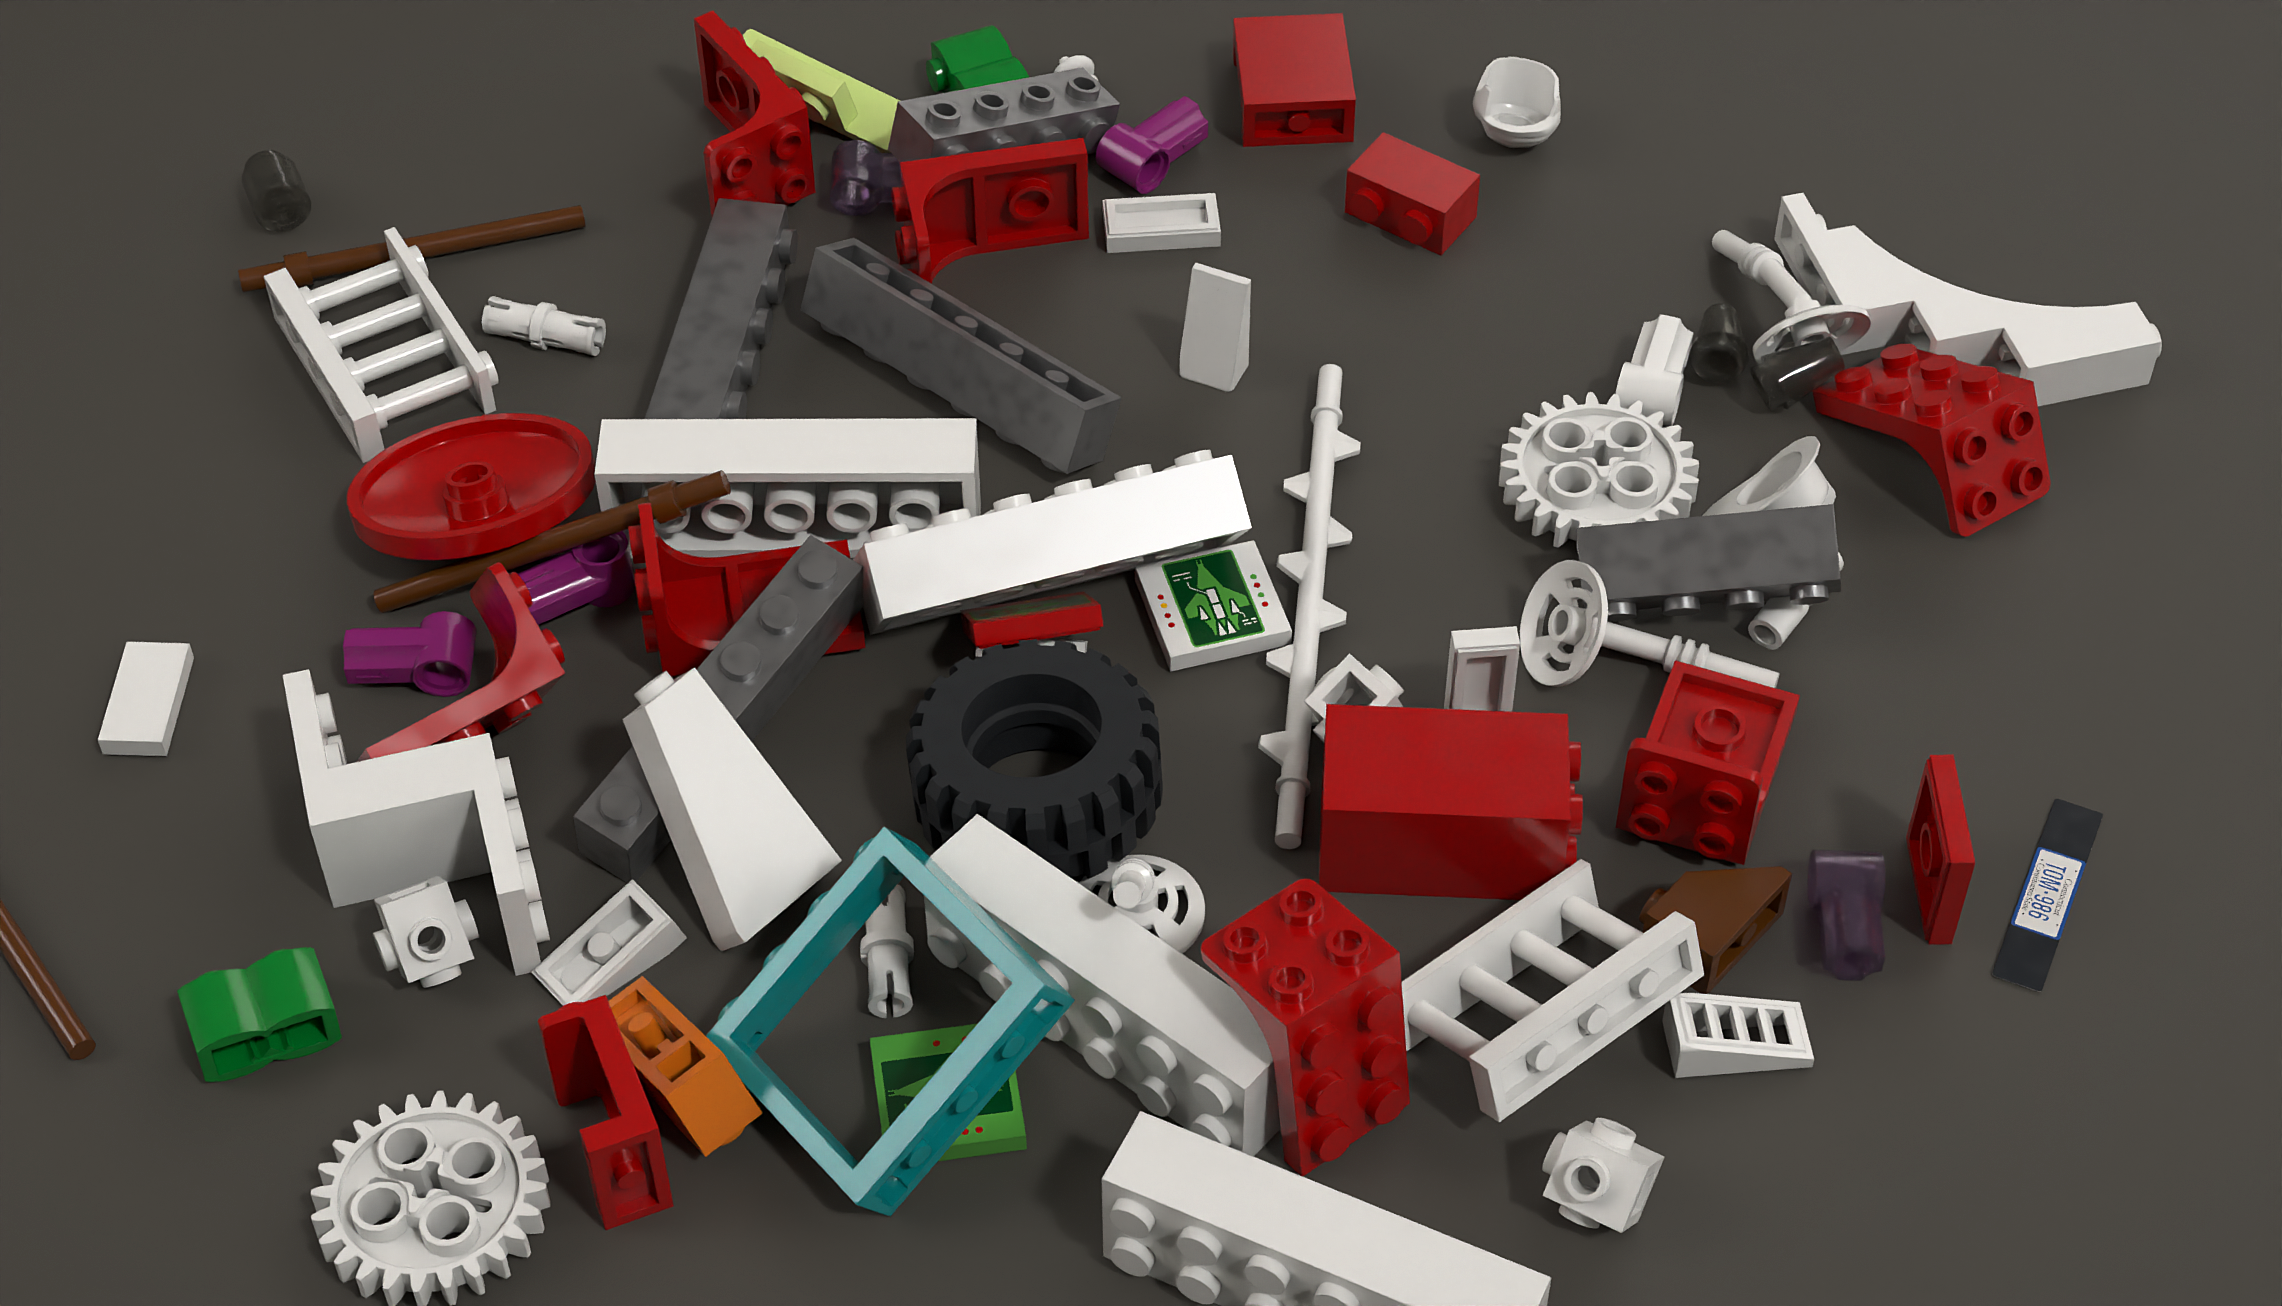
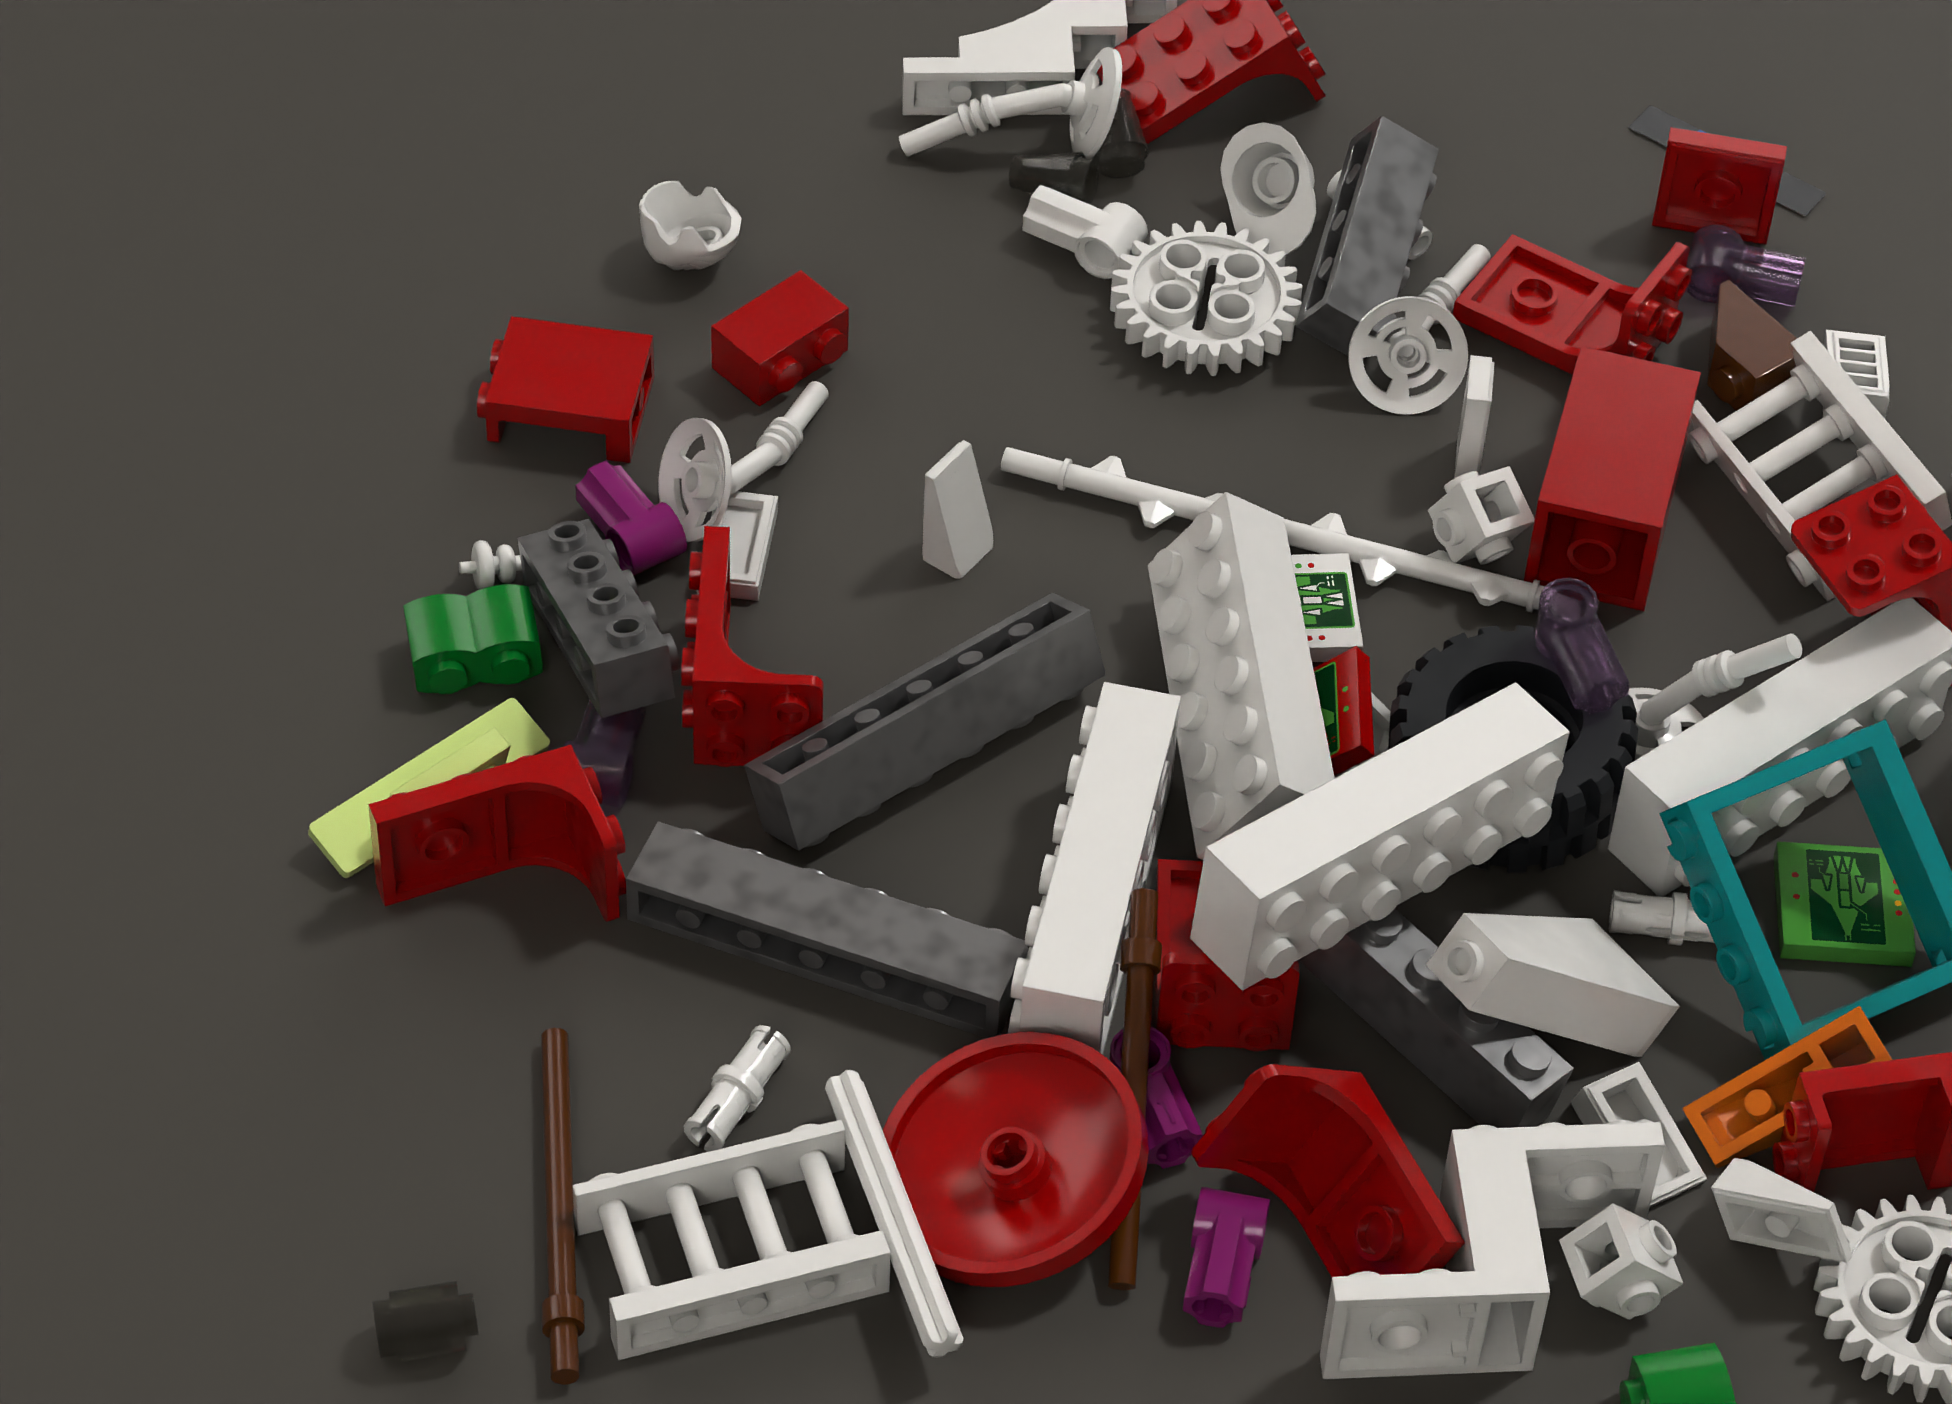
camera: 80 degrees left, 0 degrees up
(407, 425) = (894, 1215): none -> white axle
(494, 1046) = (1778, 1213): none -> white slope
(779, 595) = (1377, 836): none -> white brick
(1122, 733) = (1579, 645): none -> clear purple piece
(1197, 166) = (711, 477): none -> white dish

